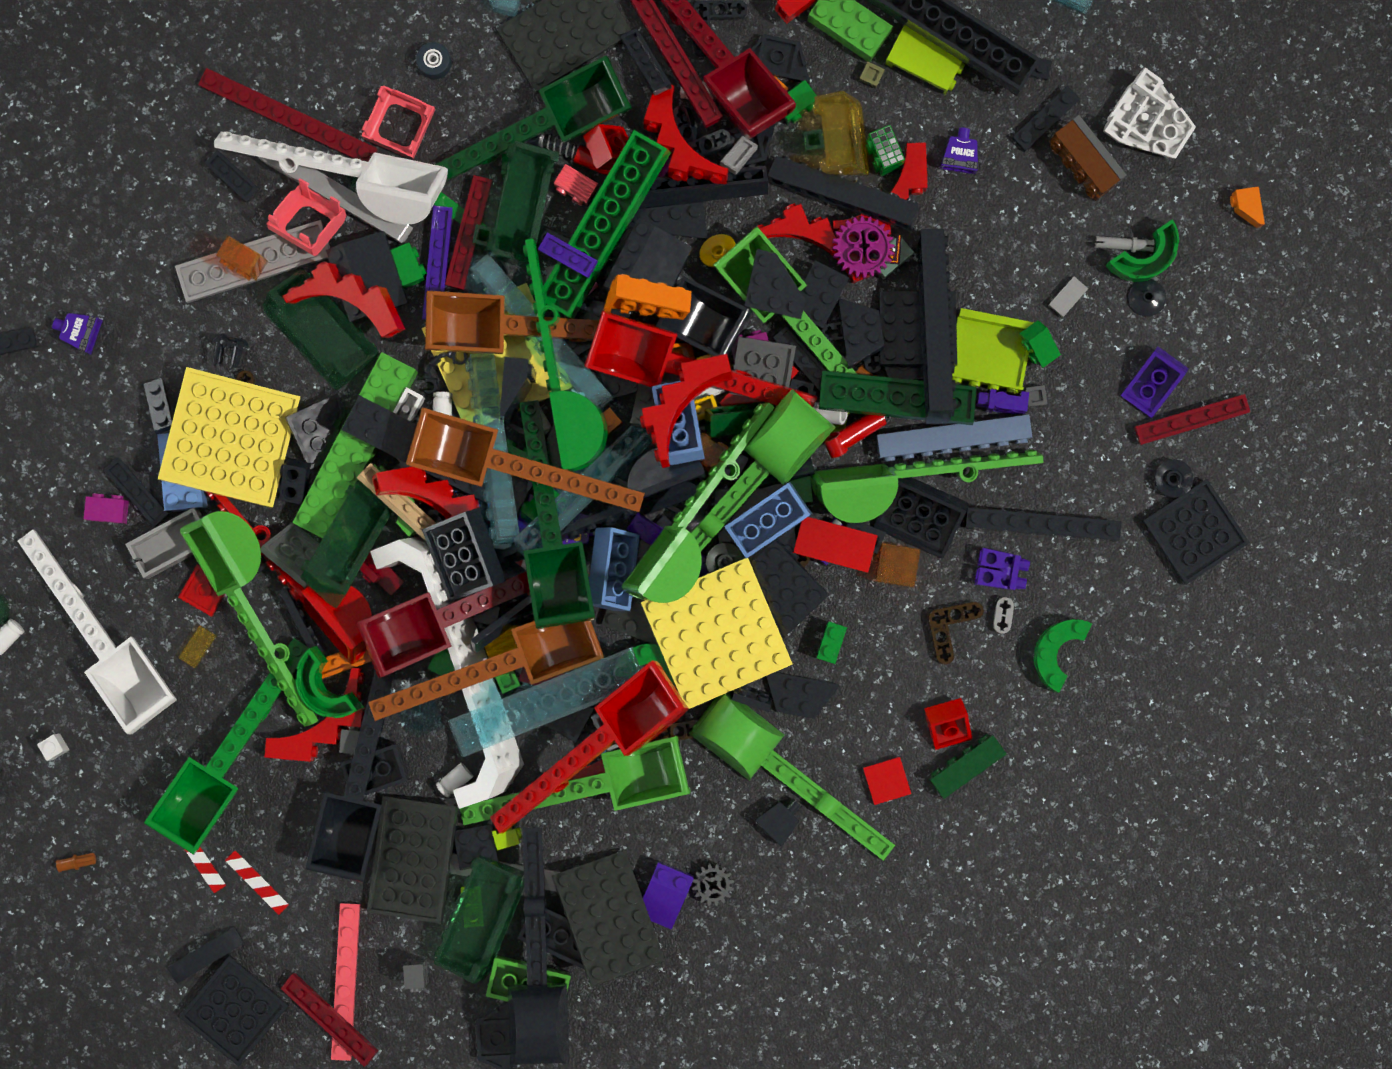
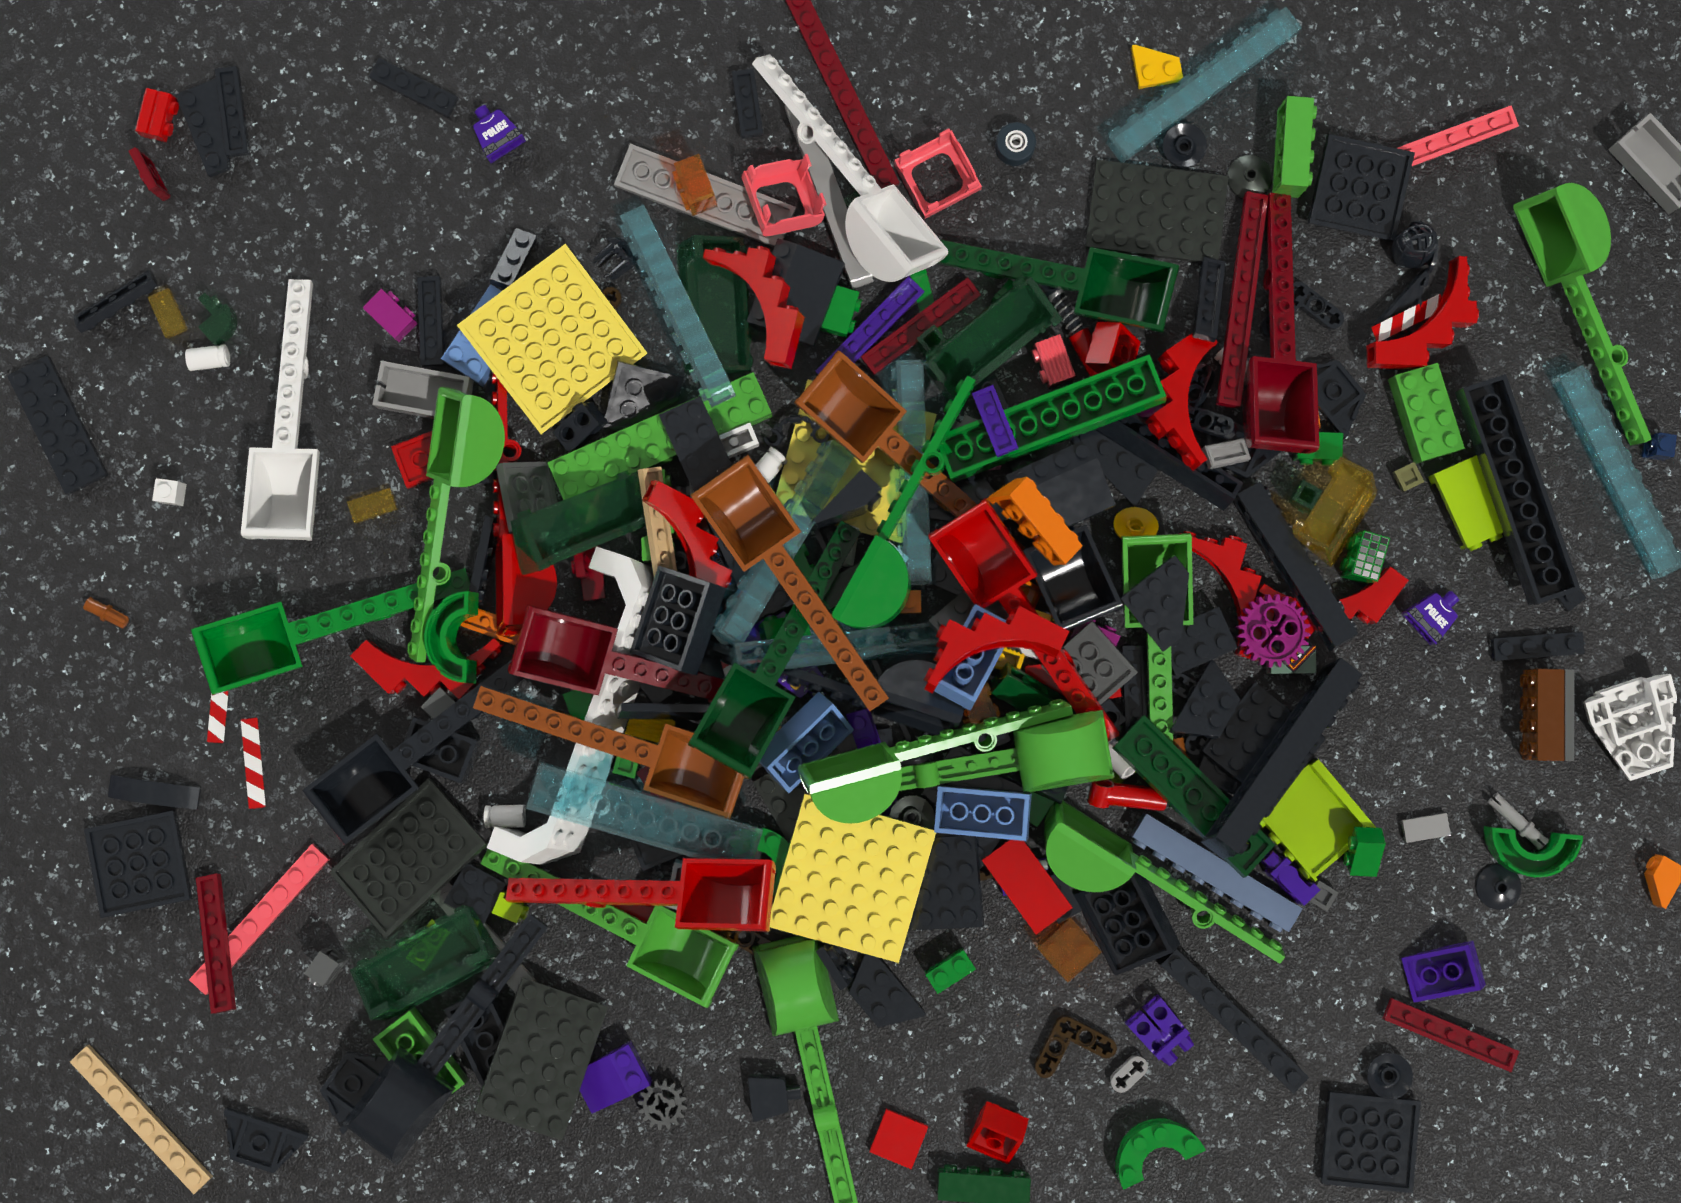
camera: 40 degrees right, 0 degrees up
(295, 348) = (677, 305): none -> clear light blue brick

